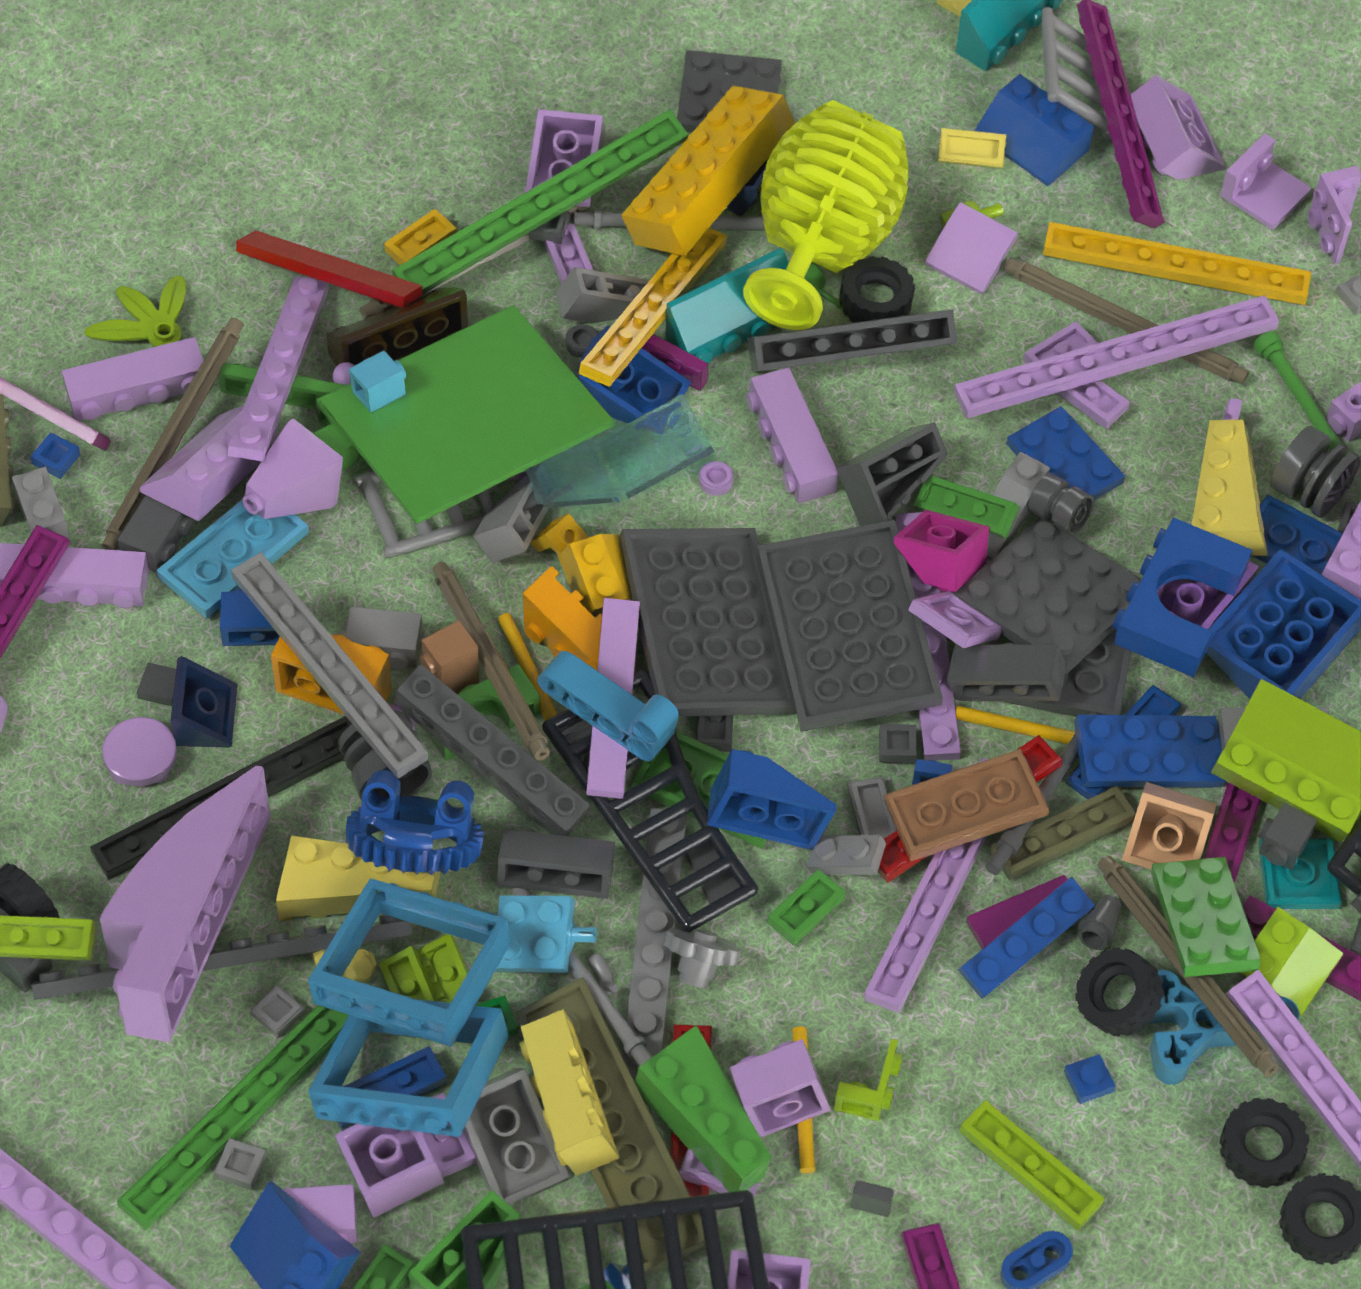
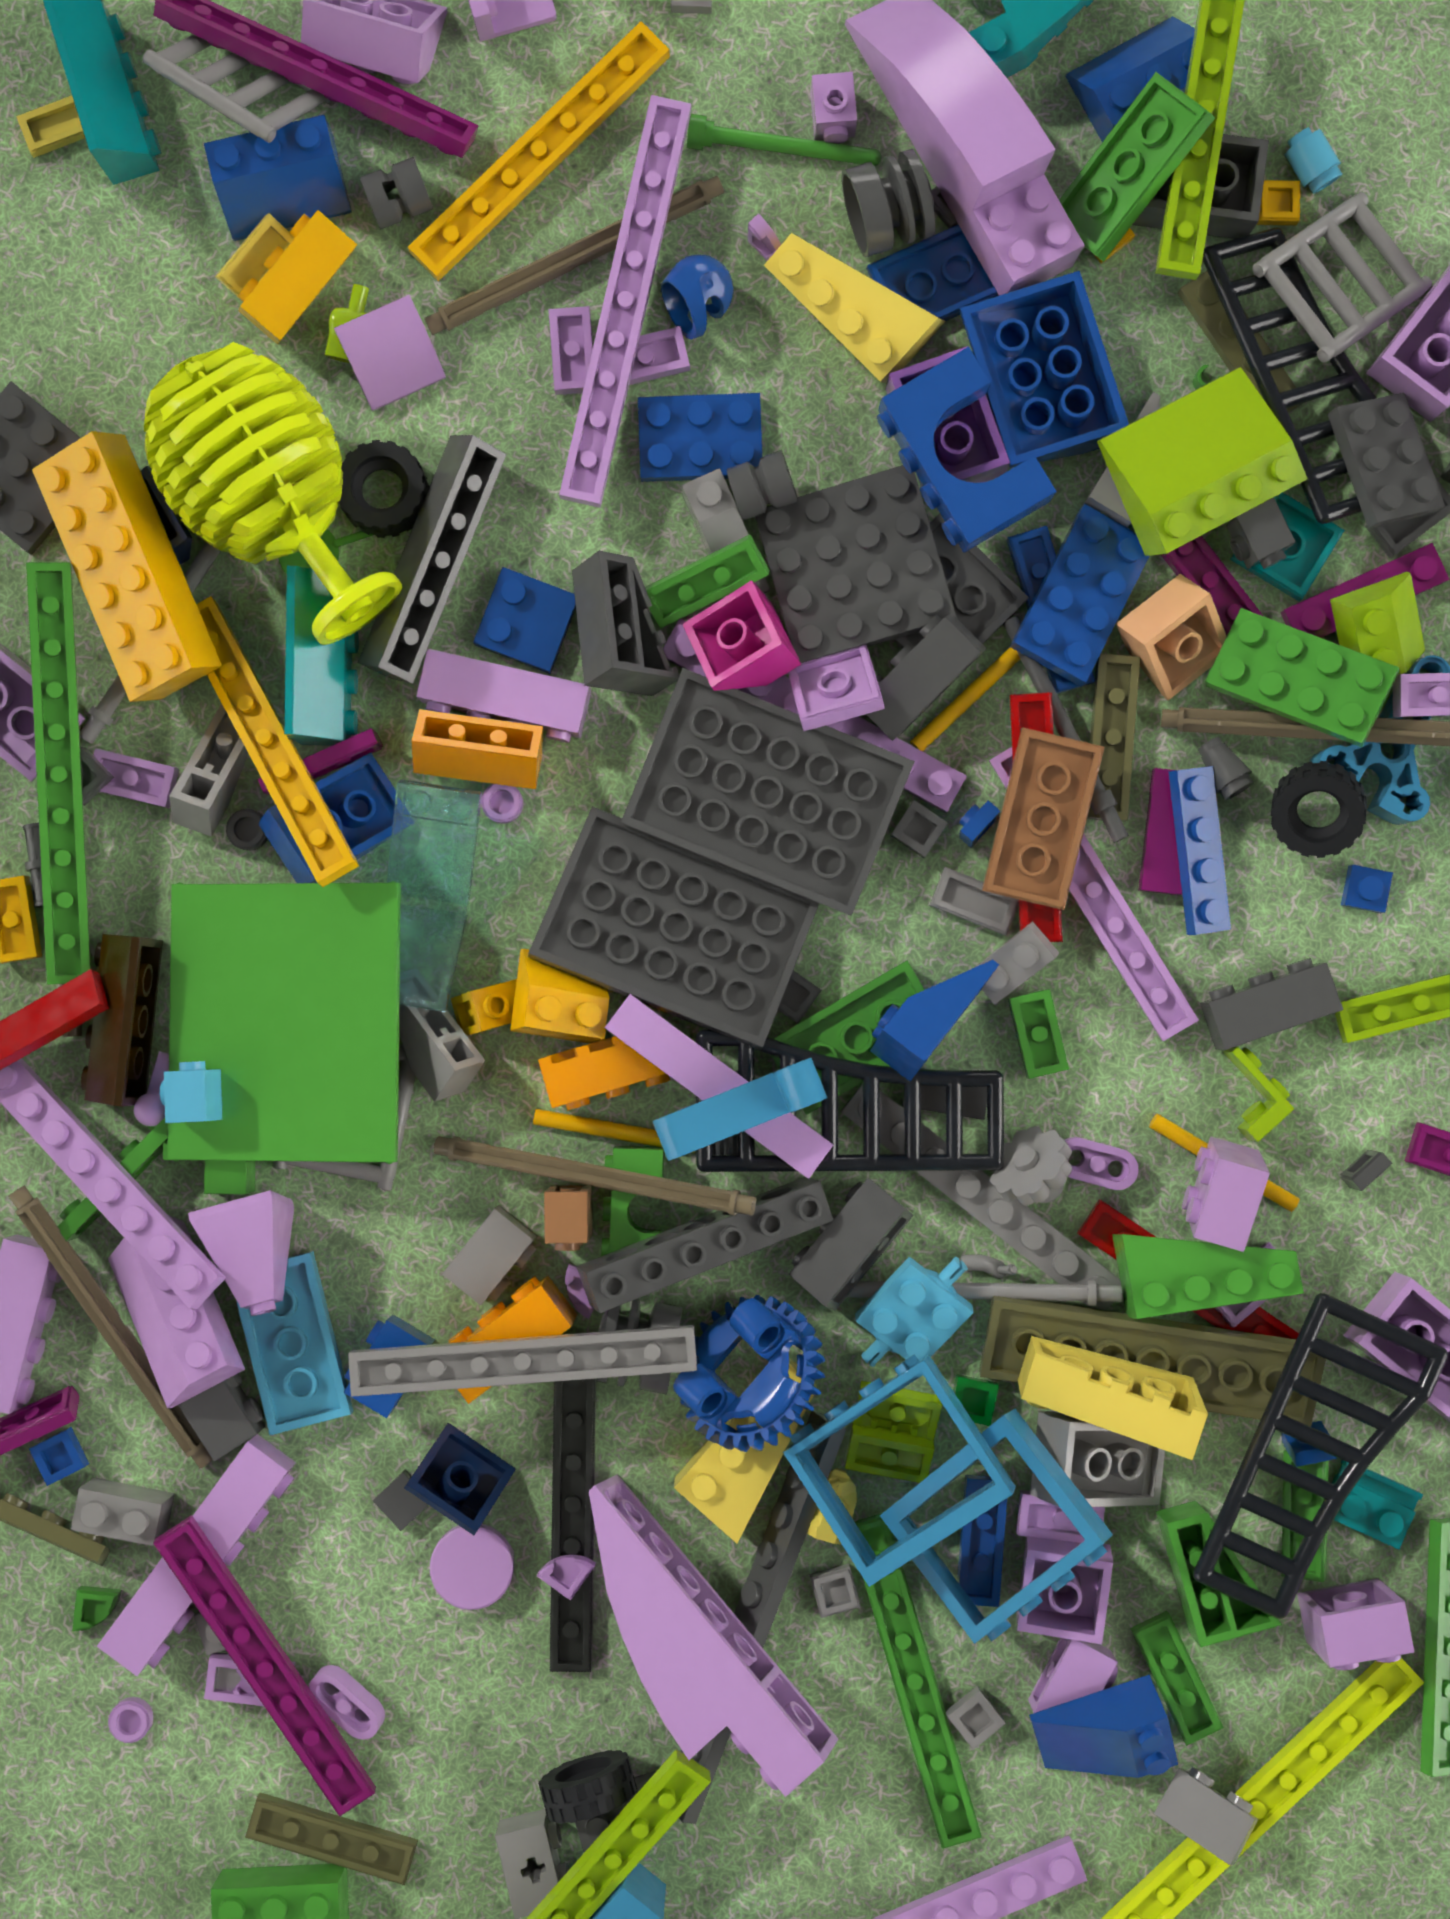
camera: 55 degrees left, 30 degrees up
(170, 810) = (566, 1573): none -> lavender tile
(738, 1005) = (1095, 1164): none -> lavender plate
(742, 435) = (477, 749): none -> light orange brick
(853, 423) = (526, 620): none -> blue plate
(948, 1054) = (1270, 1004): none -> dark grey brick
(977, 170) = (295, 275): none -> yellow brick
(1081, 198) = (411, 188): none -> dark grey wheel
(1161, 390) = (688, 289): none -> blue helmet

